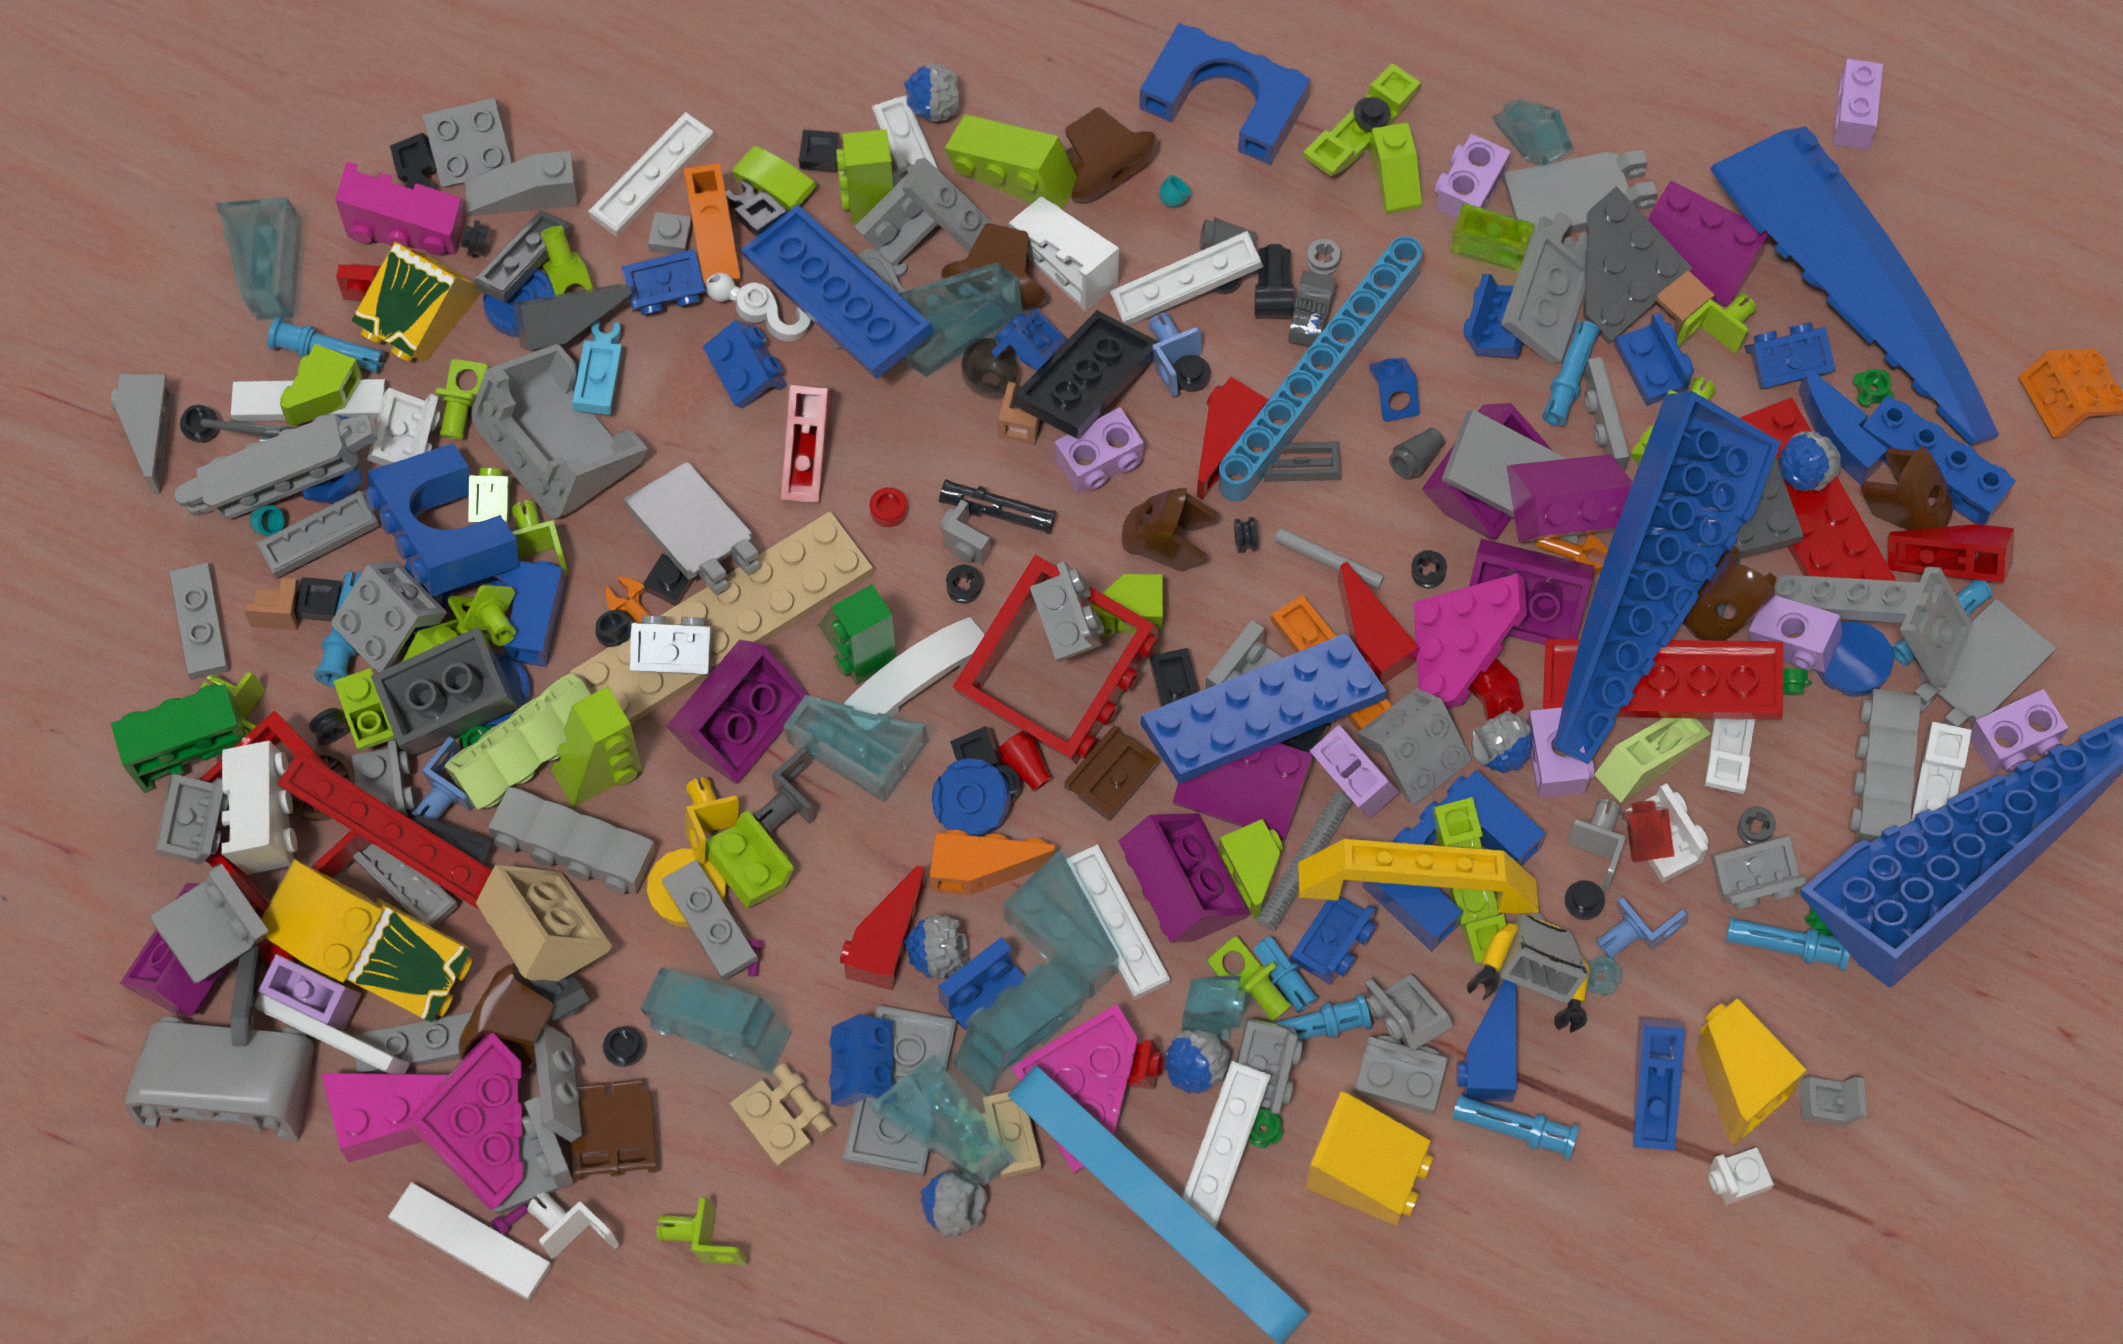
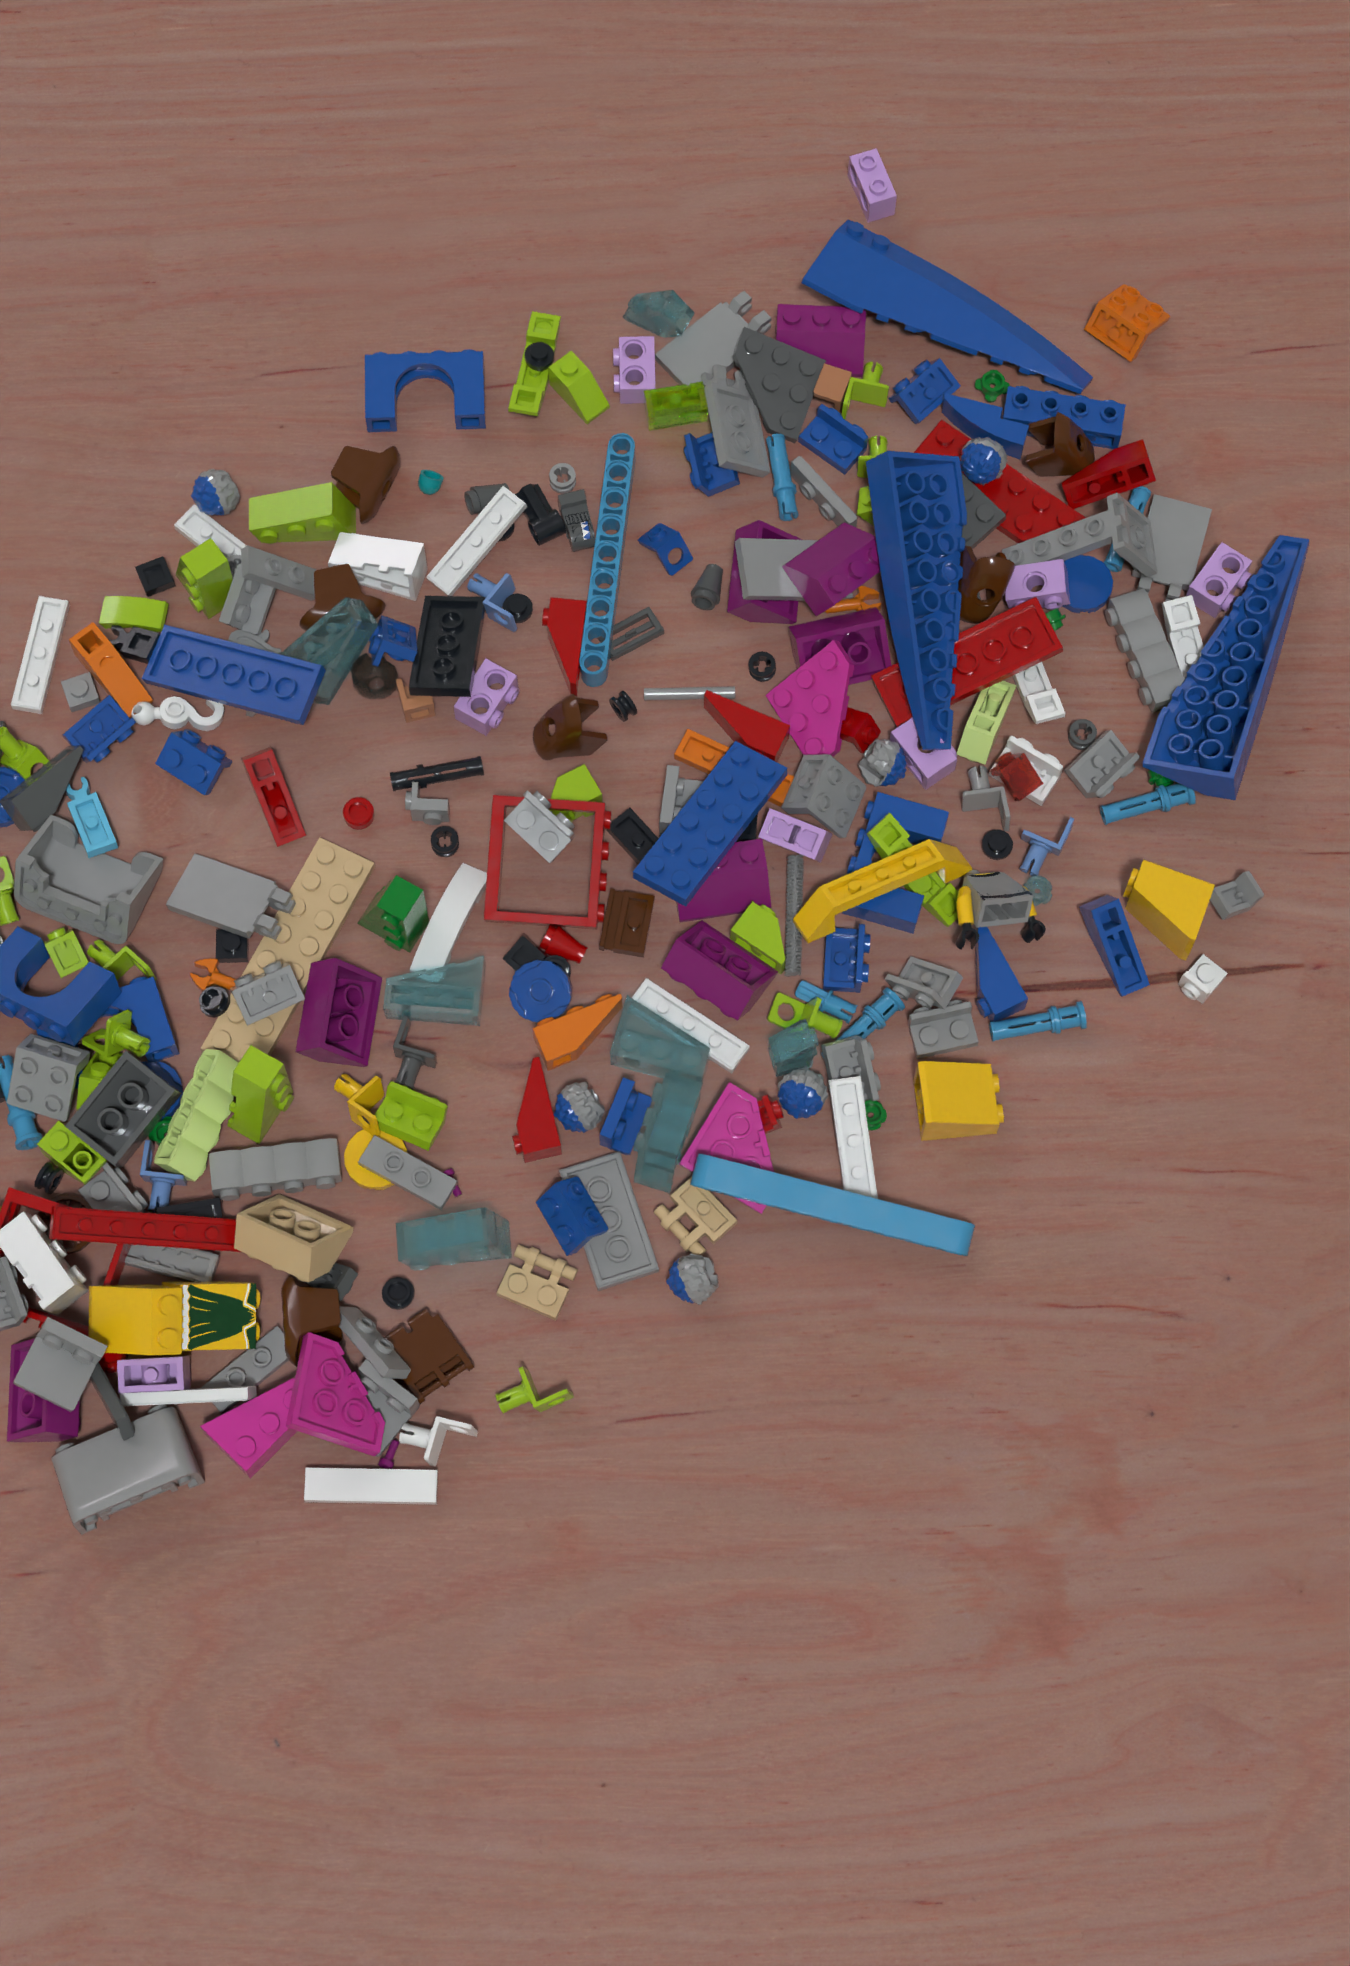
camera: 30 degrees left, 5 degrees up
(943, 1120) = (658, 1225): clear light blue wedge -> none

